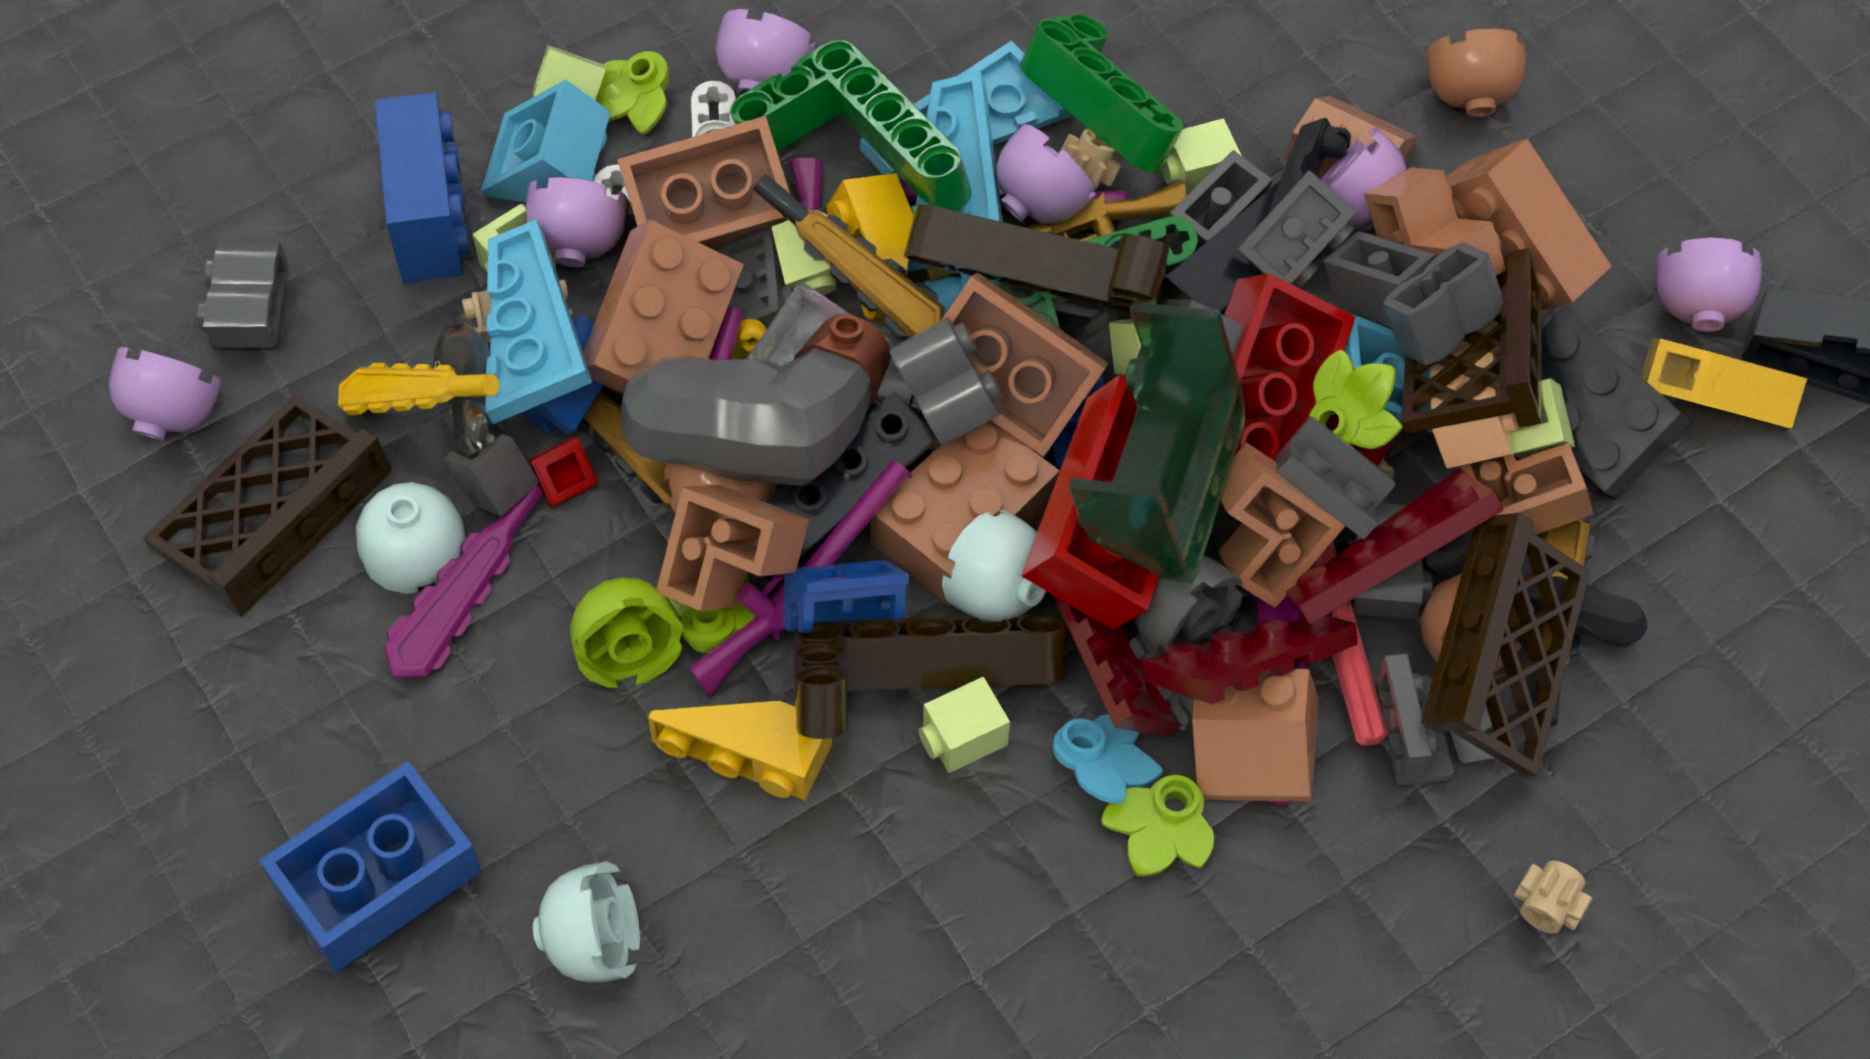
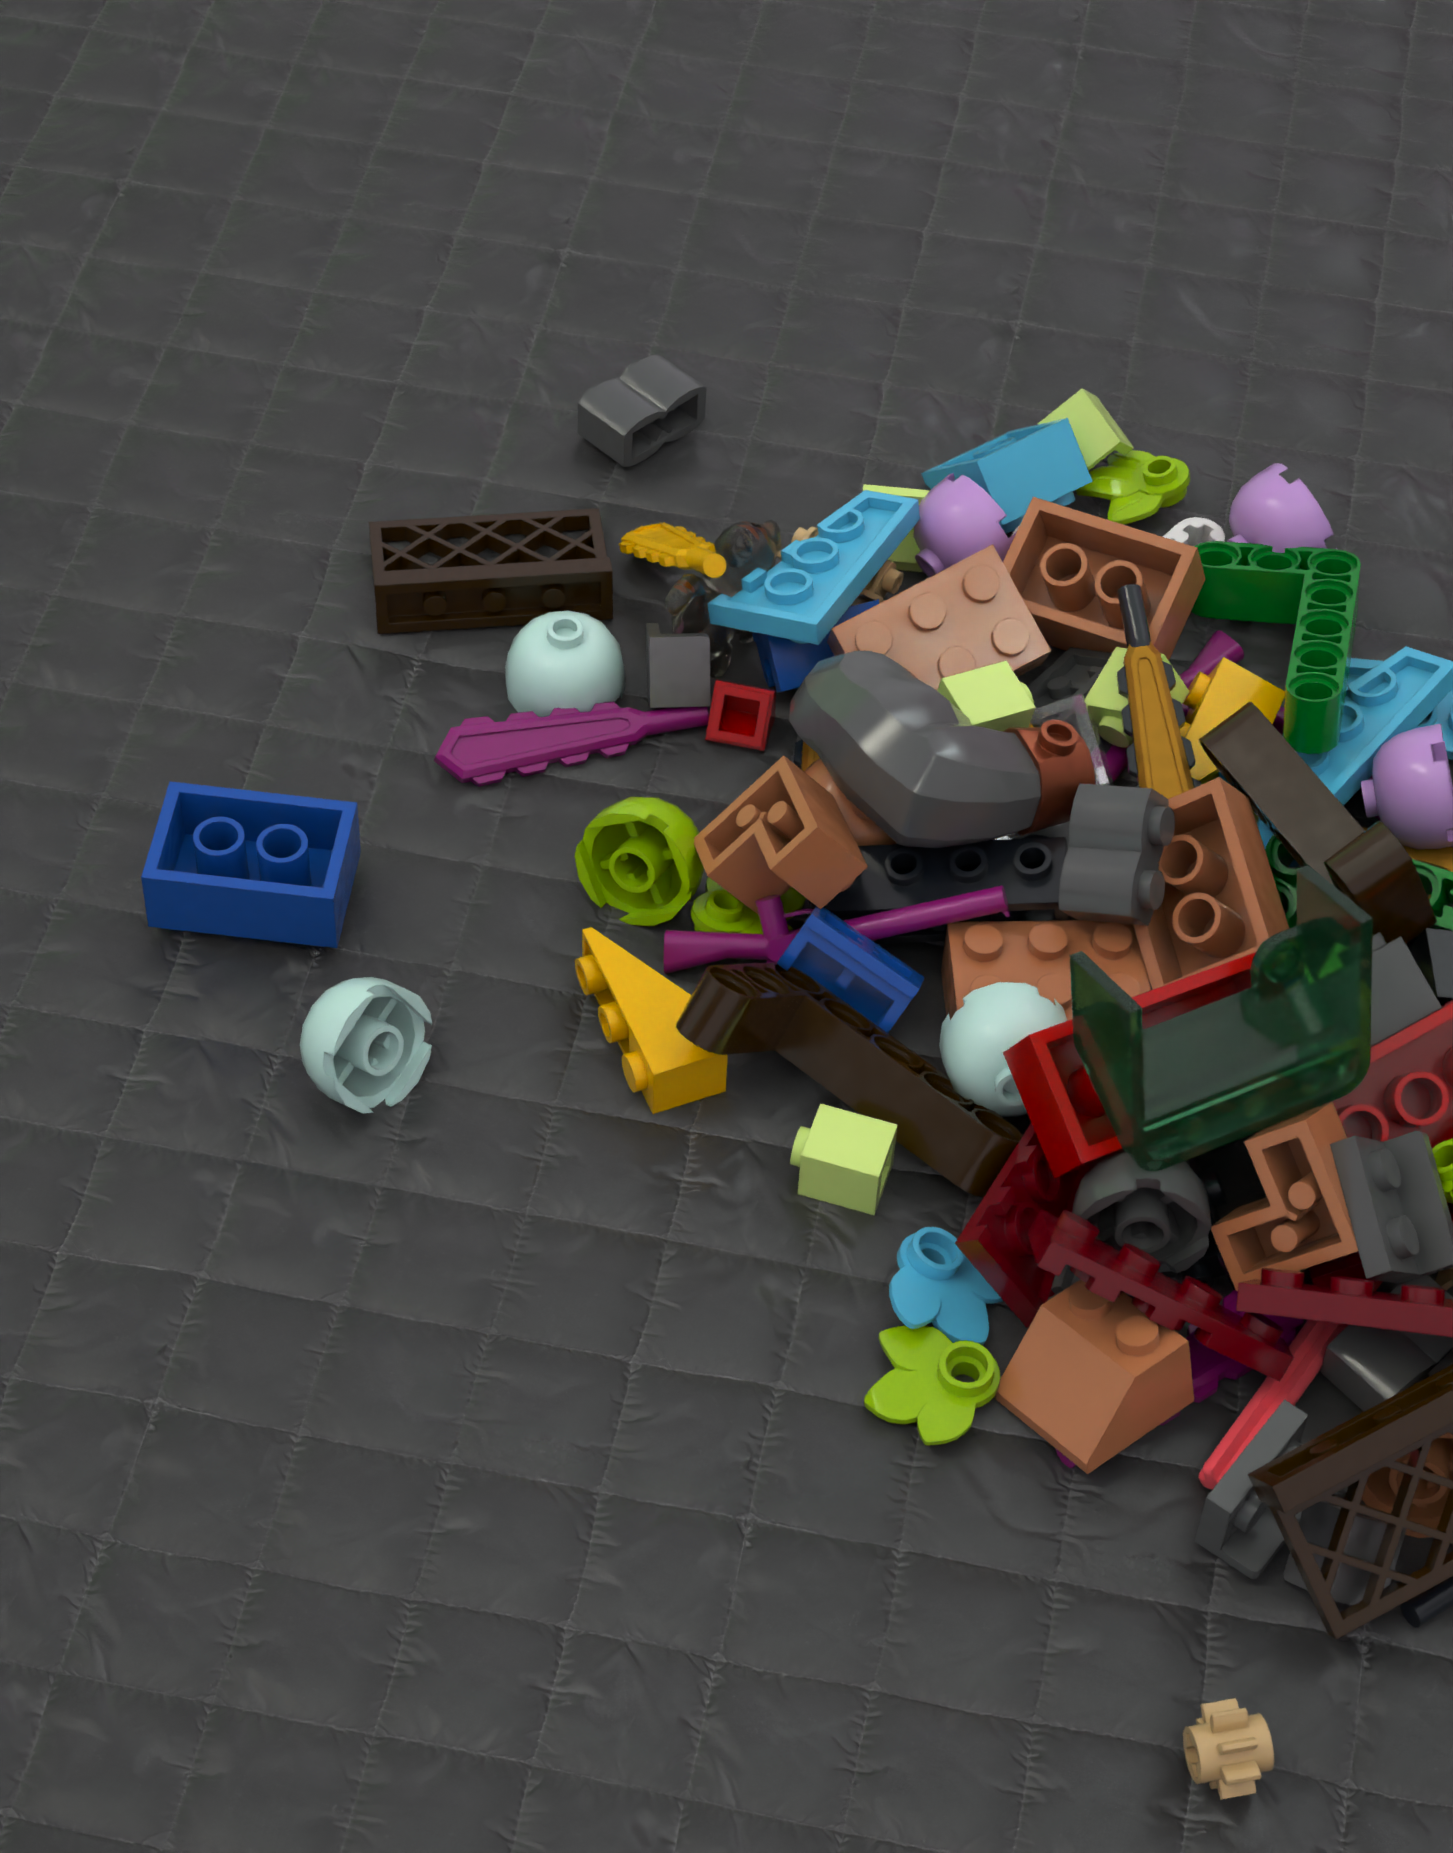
camera: 45 degrees right, 10 degrees down
(160, 393) = (492, 427): lavender cylinder -> none
(418, 187) = (860, 419): blue brick -> none
(760, 334) = (990, 697): none -> yellowish green brick

